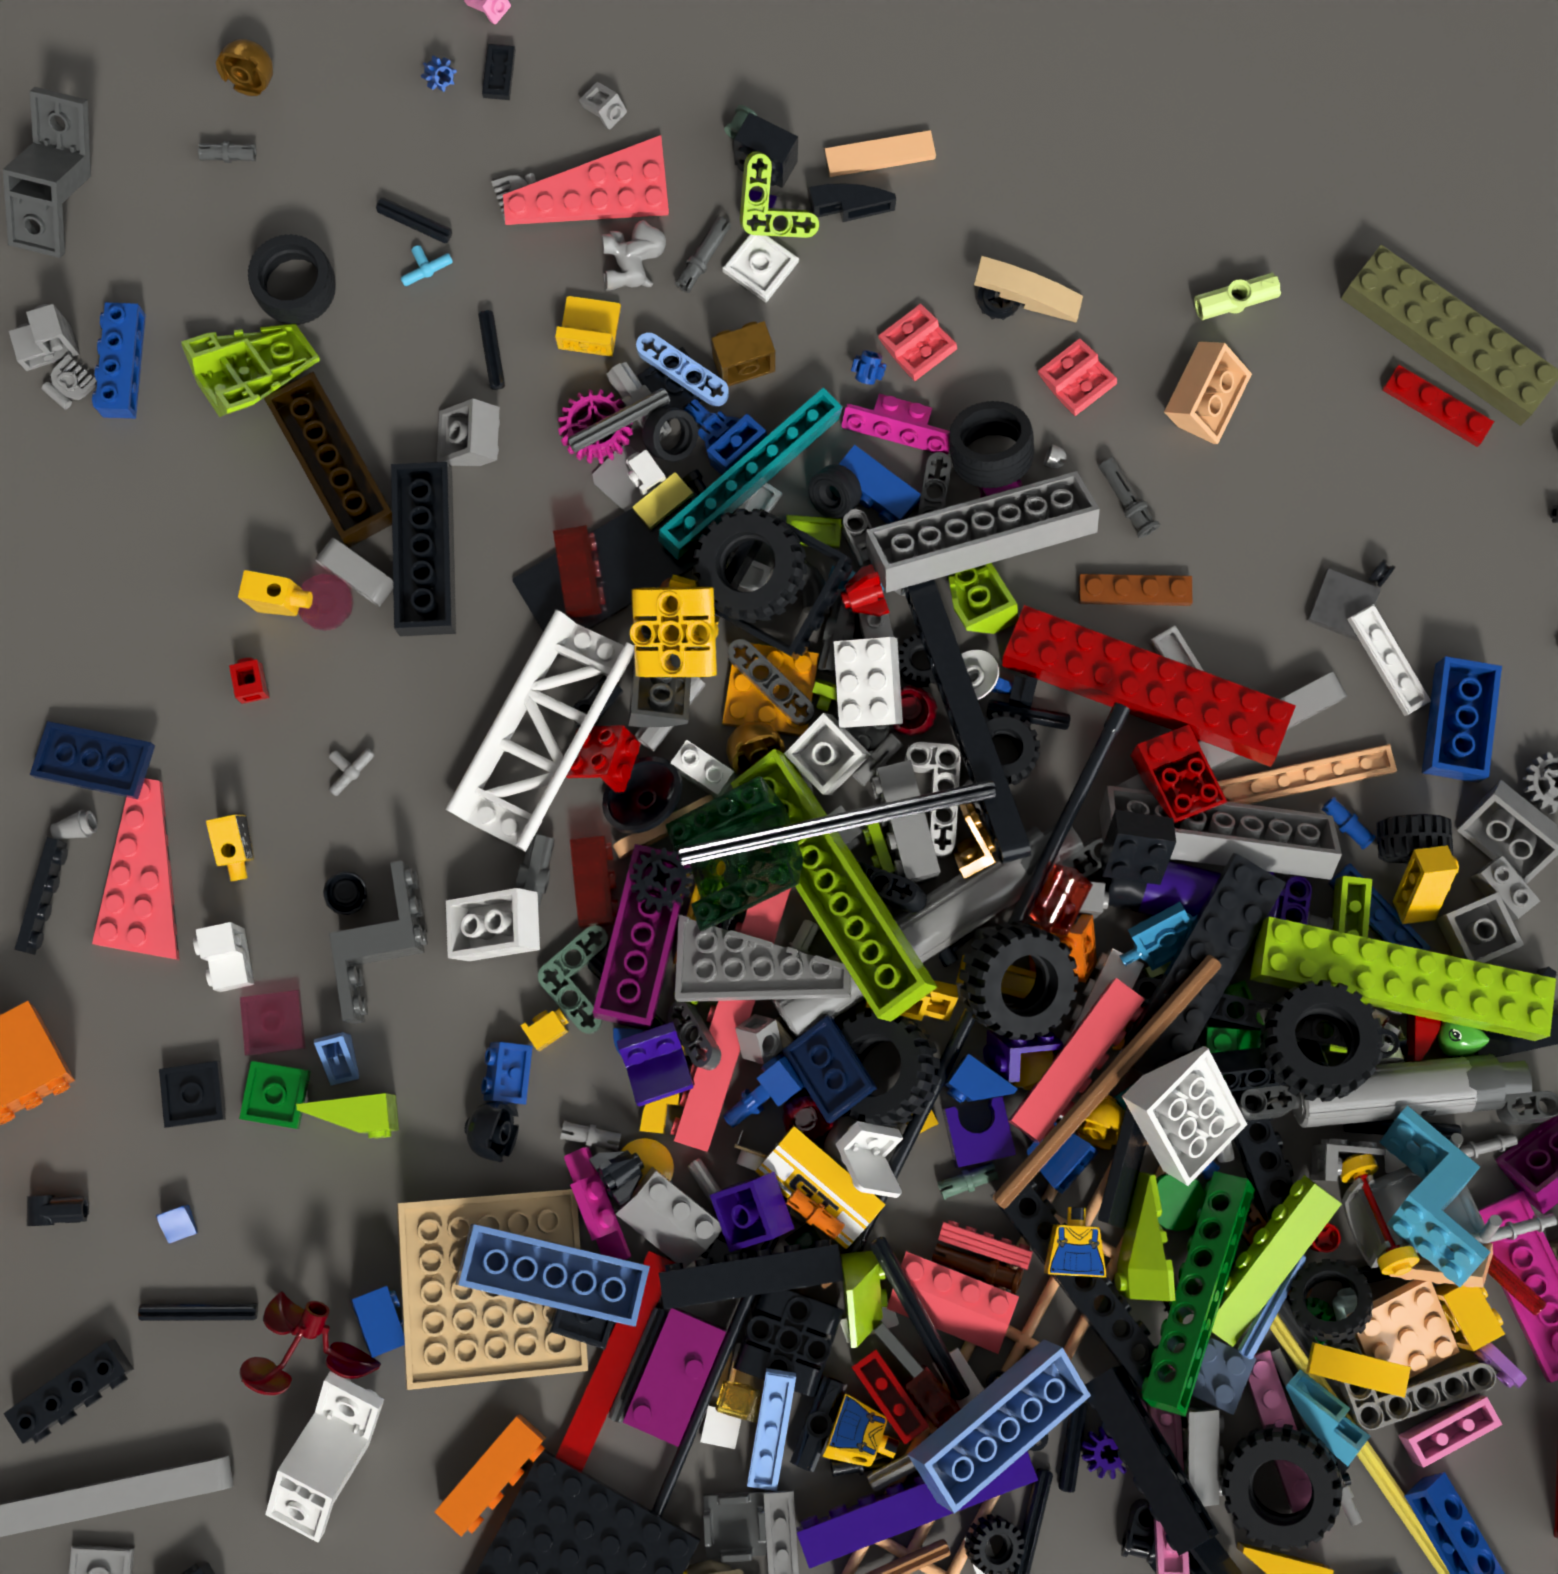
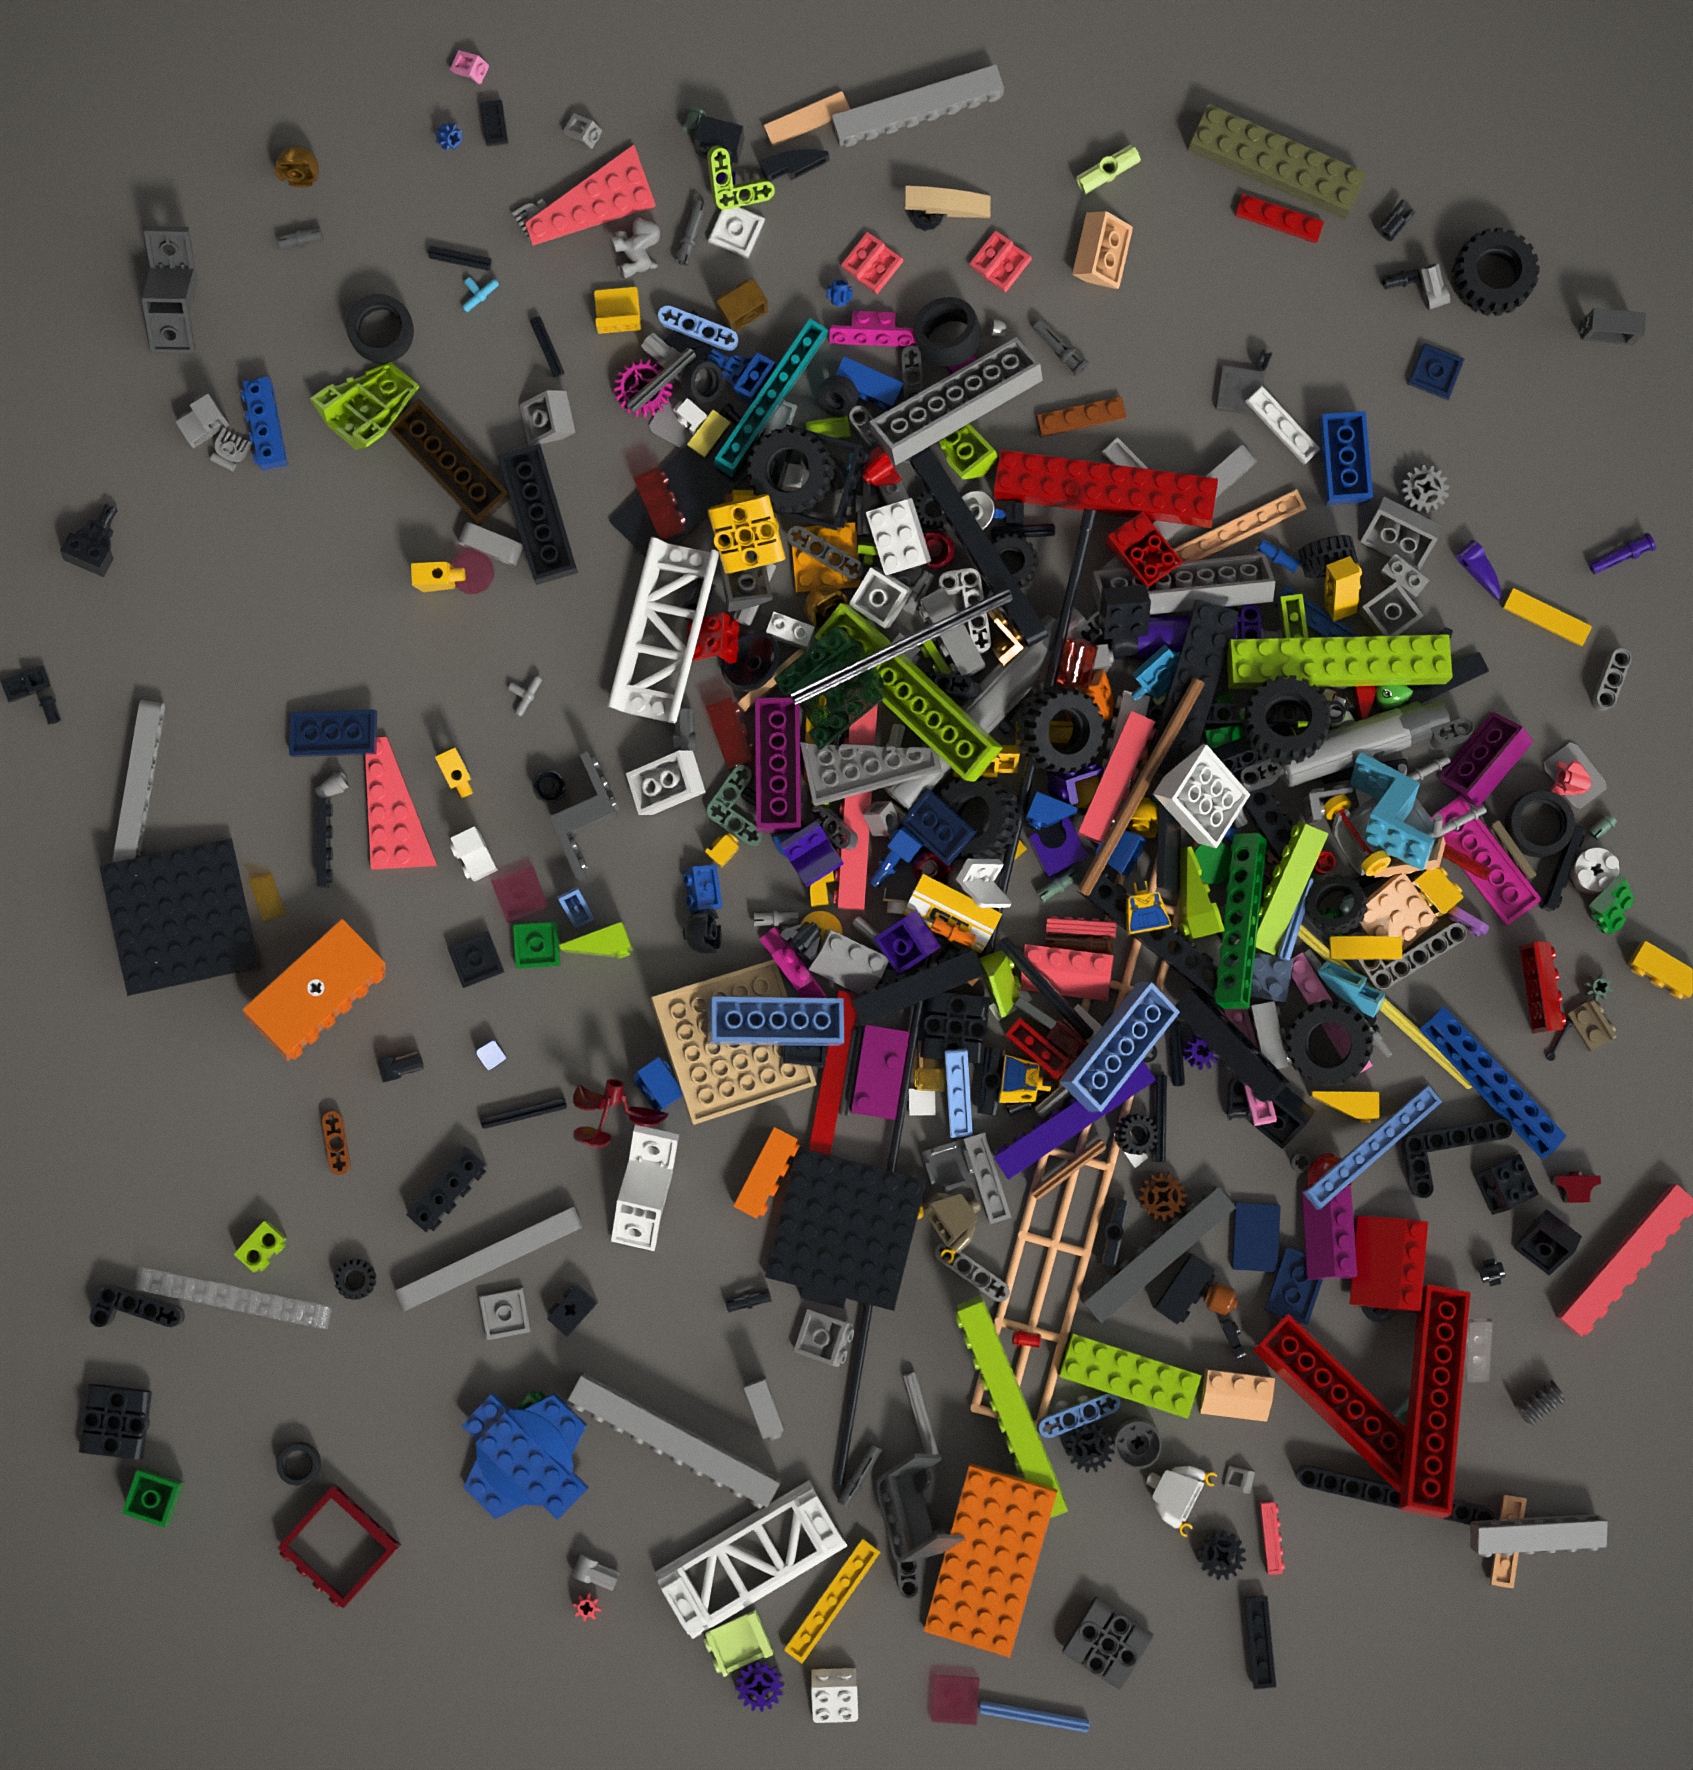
camera: 15 degrees left, 5 degrees up
(240, 673) = (427, 637): red brick -> none
(650, 883) = (775, 724): black gear -> none
(1019, 168) = (918, 105): none -> light grey brick
(1450, 1430) = (1441, 975): bright pink brick -> none

